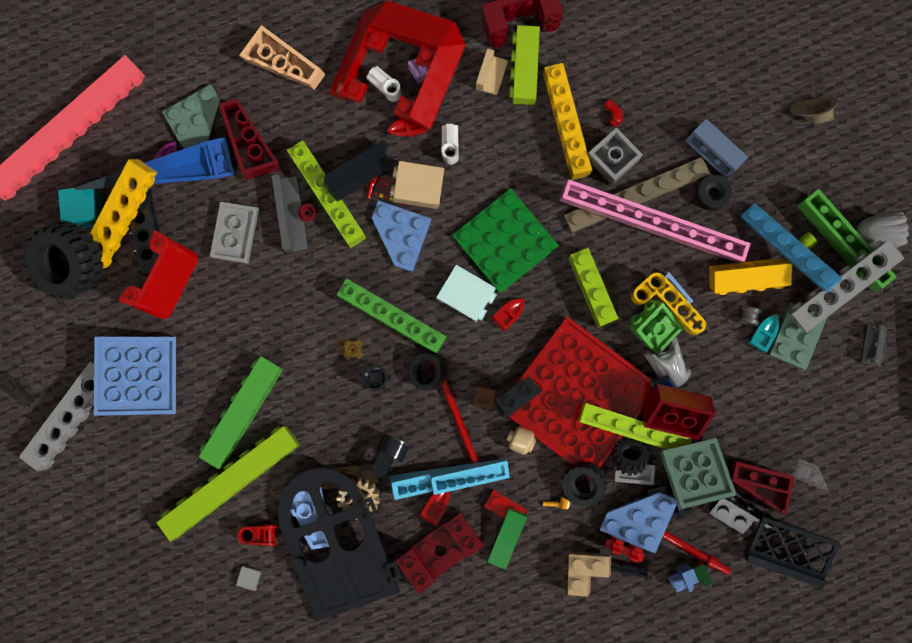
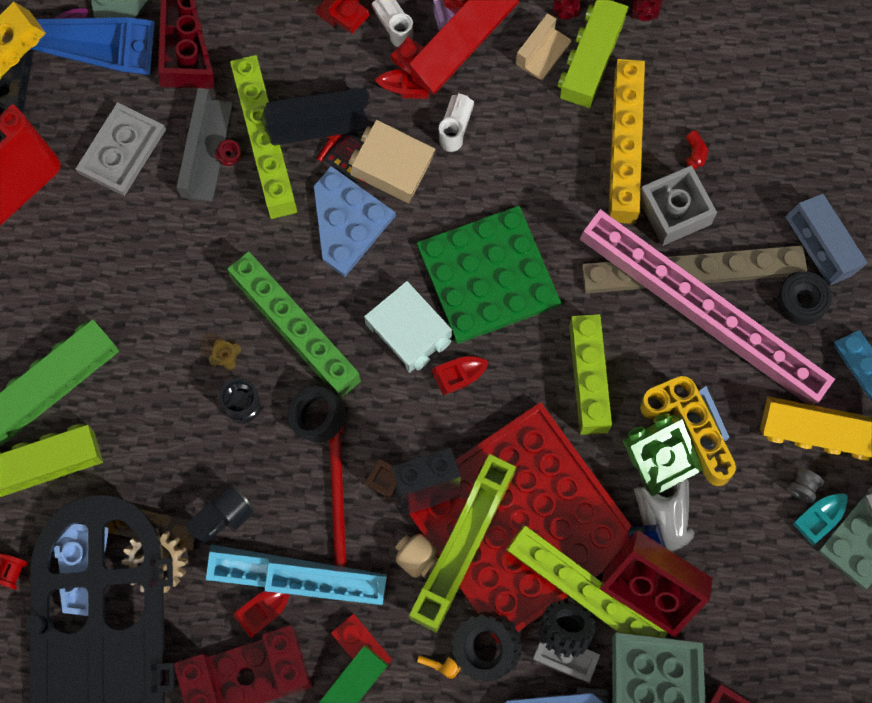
camera: 15 degrees right, 10 degrees down
(549, 424) = (463, 543): none -> lime arch

